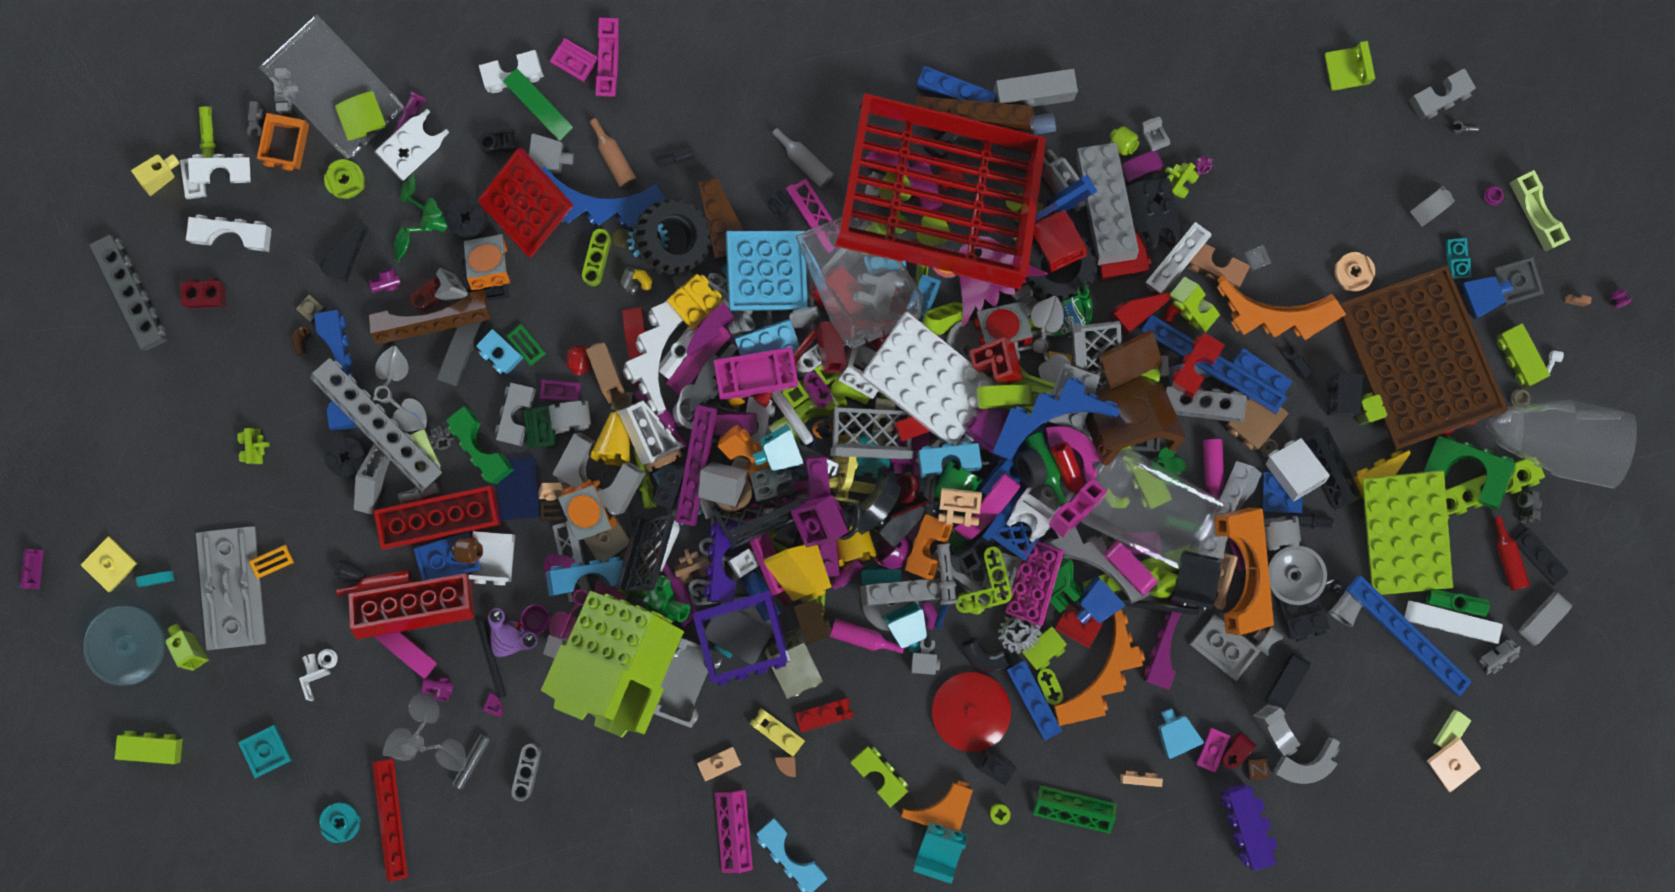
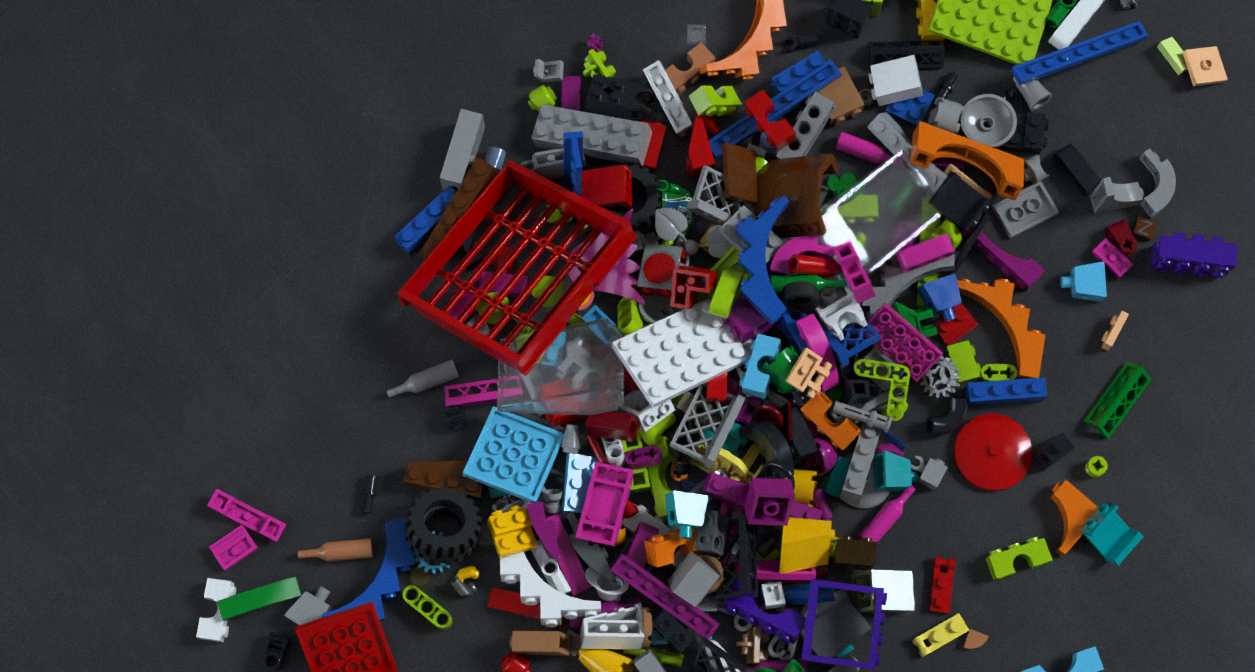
camera: 65 degrees left, 10 degrees down
(792, 417) = (659, 490): white axle -> none

